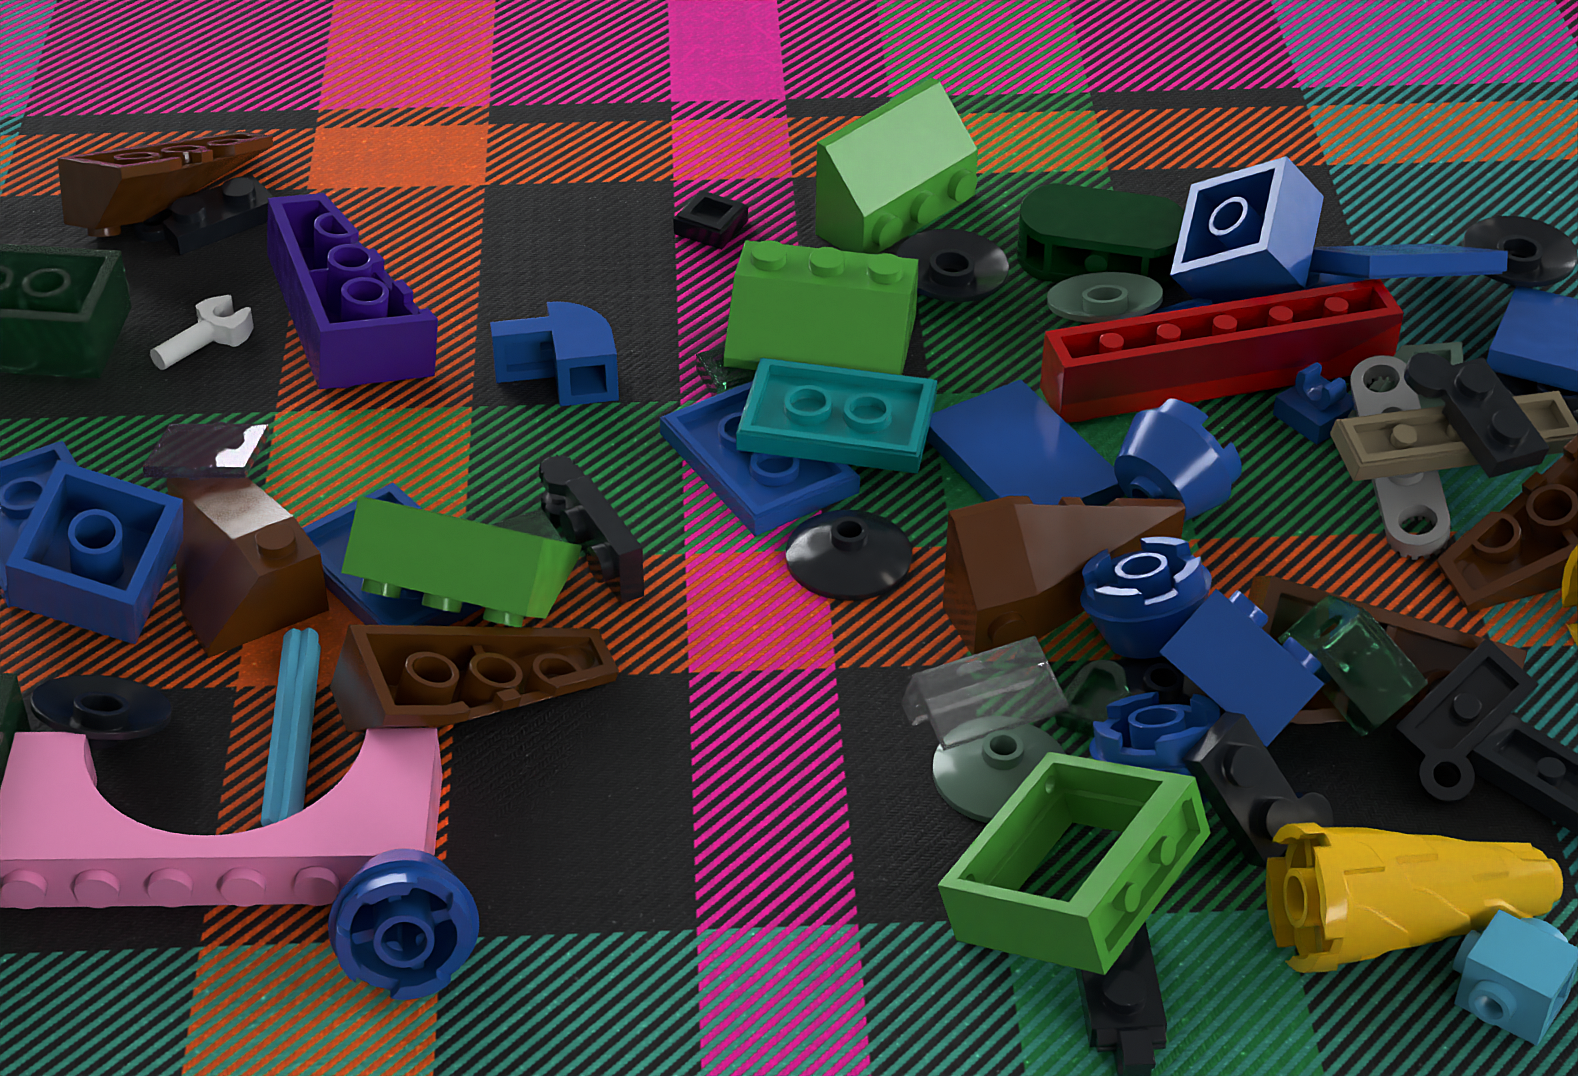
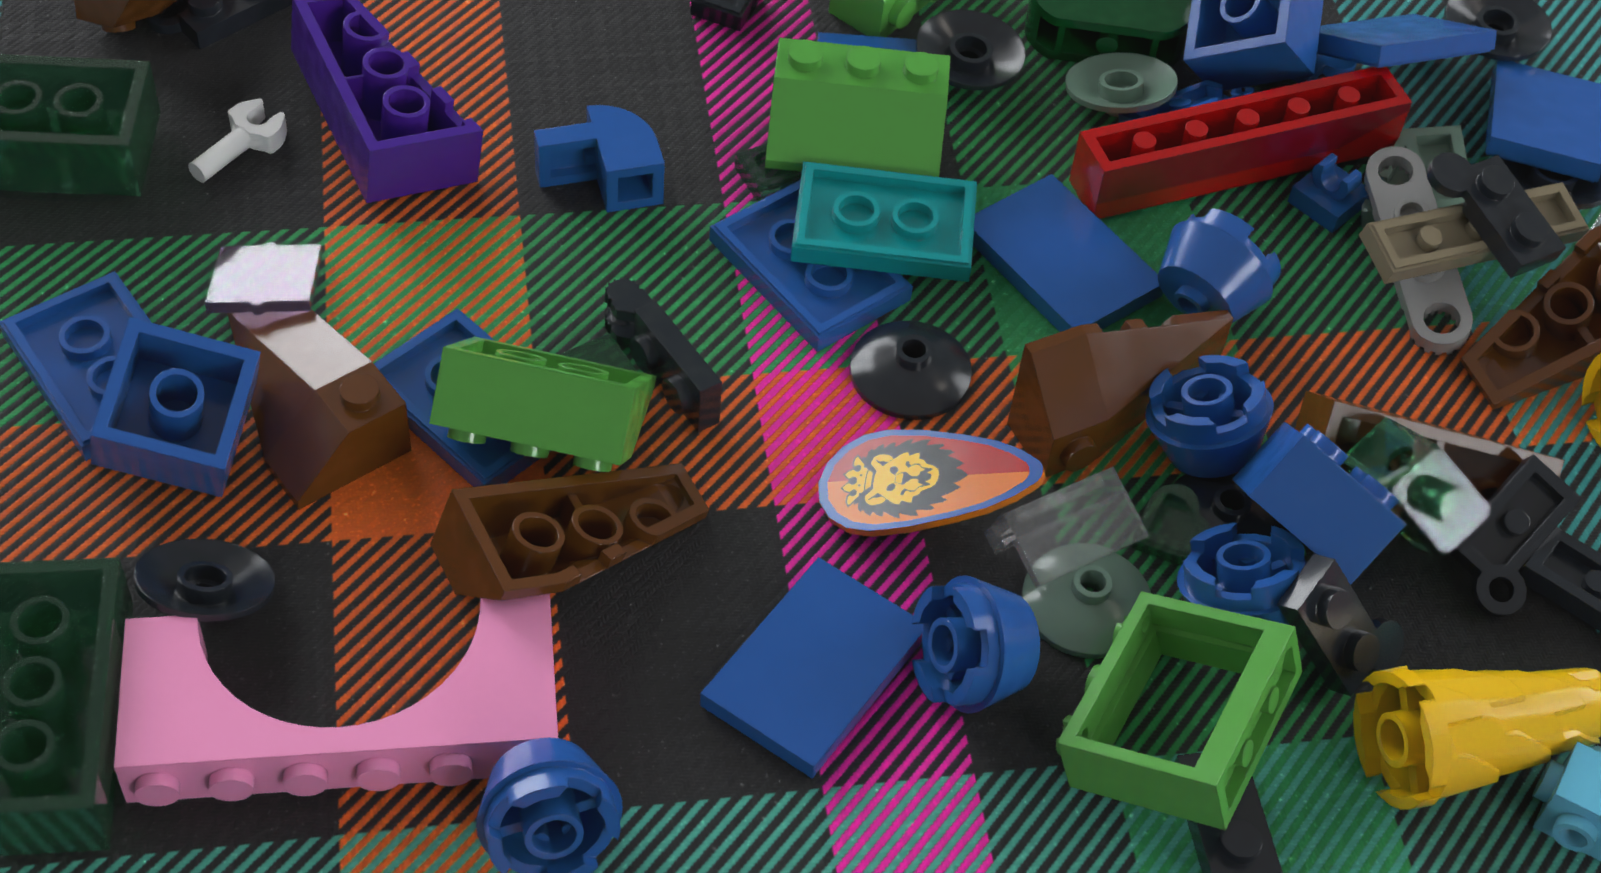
camera: 10 degrees left, 10 degrees up
(291, 726) = (397, 595): medium azure axle -> none
(703, 816) = (813, 667): none -> blue tile
(838, 647) = (922, 480): none -> shield
(868, 792) = (974, 644): none -> blue cone

